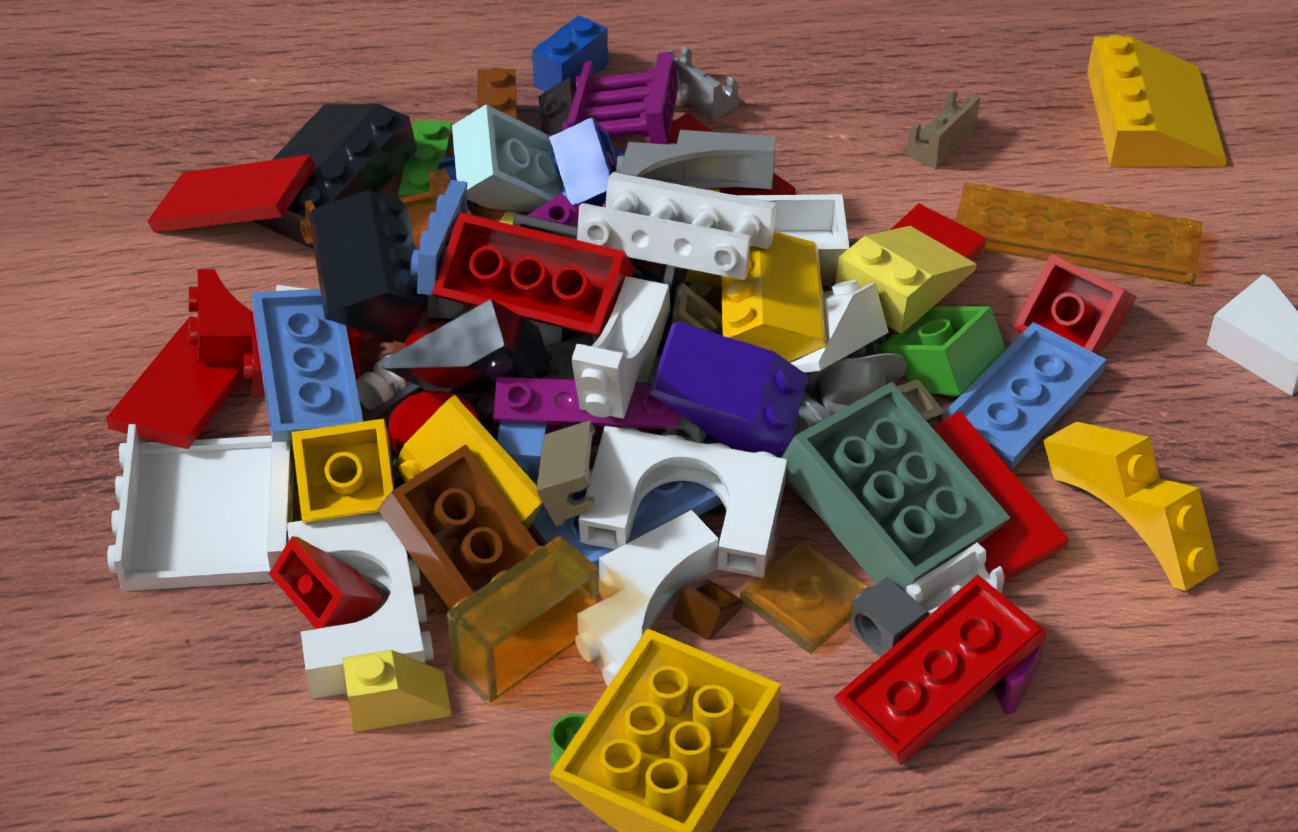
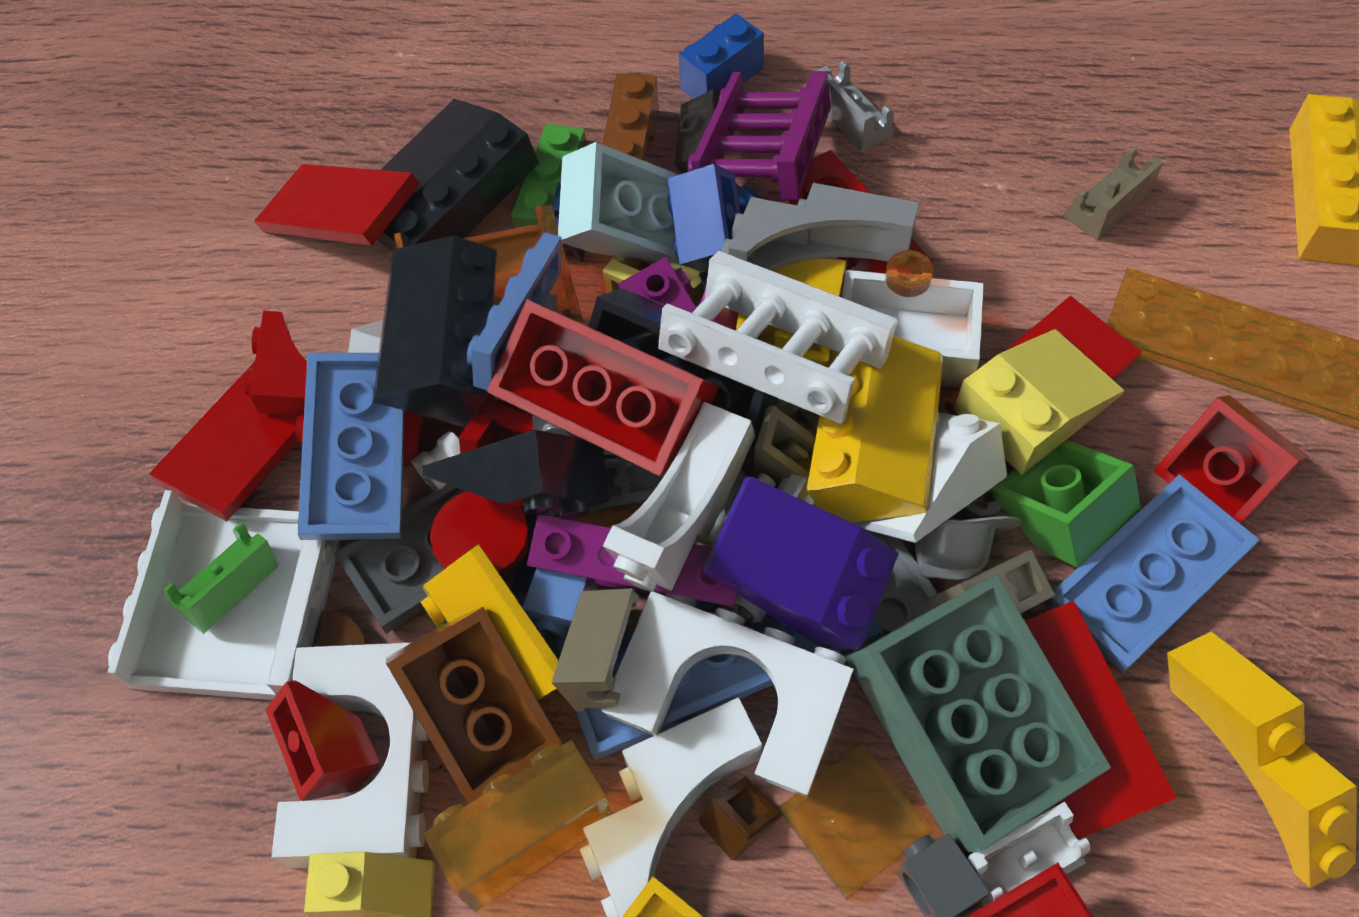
camera: 15 degrees right, 15 degrees up
(201, 489) = (223, 581): none -> bright green hinge
(343, 469) = (364, 598): yellow slope -> none
(777, 189) = (909, 273): none -> clear orange tile

